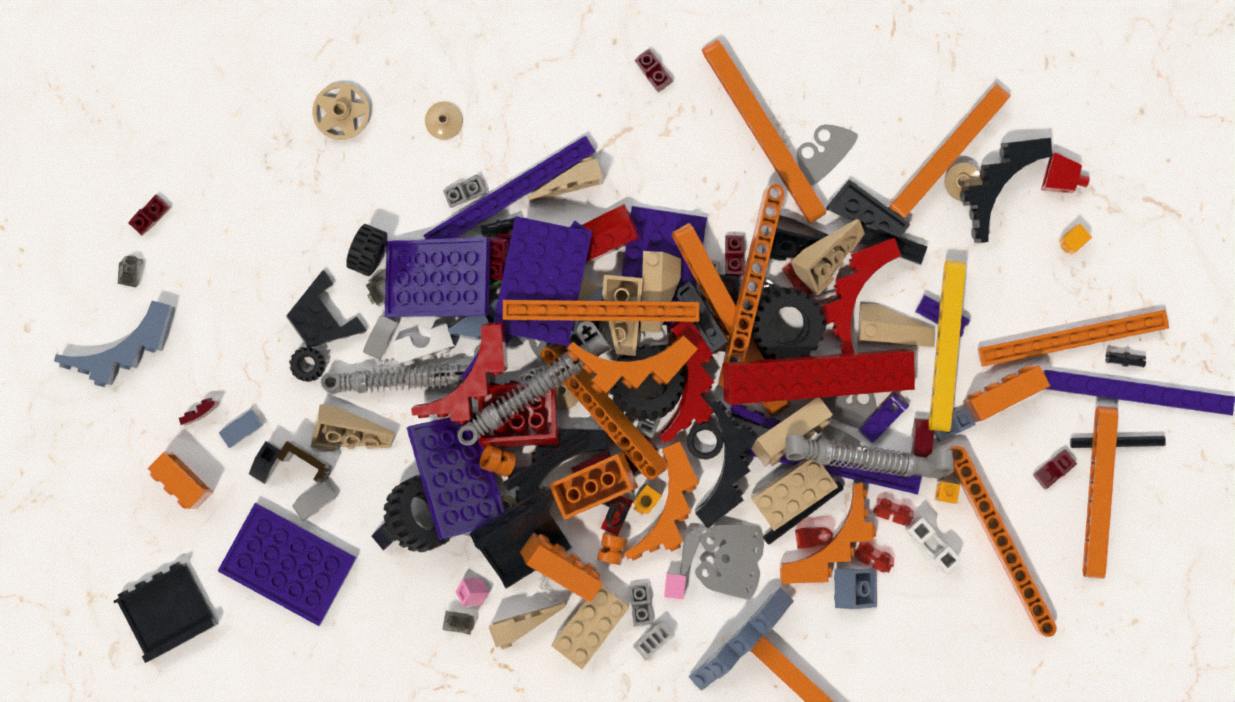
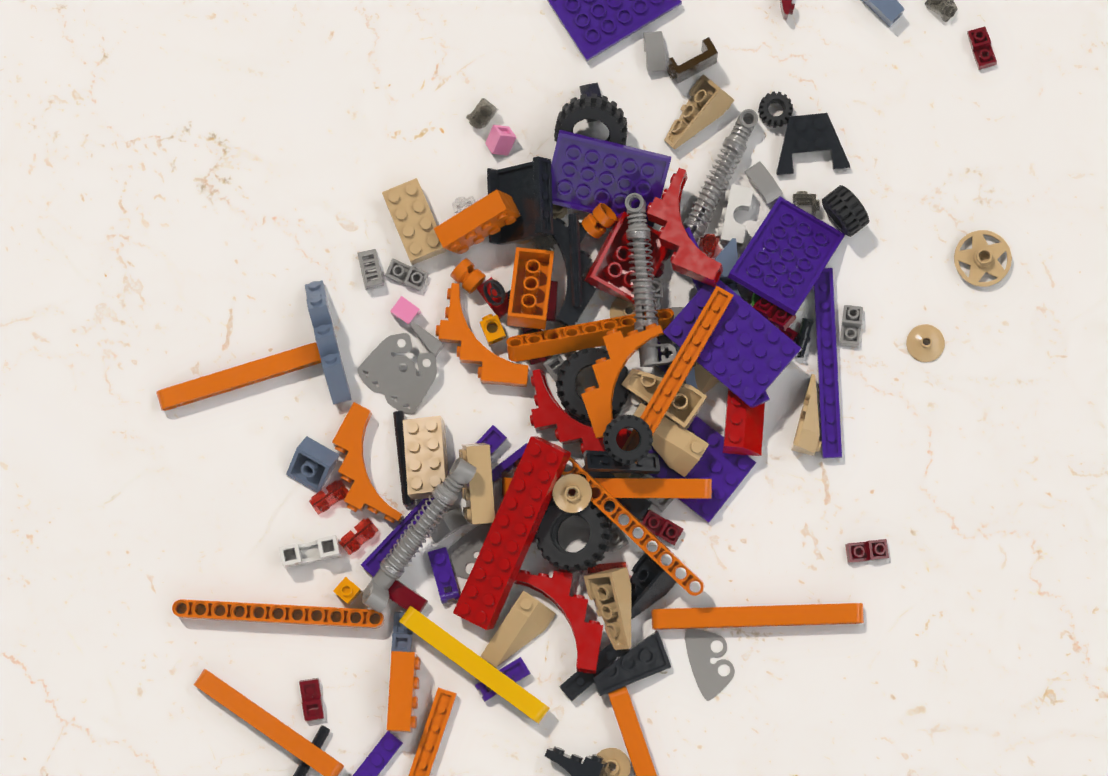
camera: 130 degrees right, 5 degrees down
(240, 428) = (751, 24): sand blue slope -> none
(265, 462) = (711, 27): black slope -> none
(464, 352) = (709, 244): none -> clear red hinge
(513, 628) = (450, 154): tan wedge -> none
(692, 304) = (636, 454): none -> black tyre
(719, 443) = (513, 422): black tyre -> none
(736, 441) = (498, 431): black arch -> none
(763, 336) = (576, 502): none -> tan dish
(809, 537) = (379, 450): clear red piece -> none

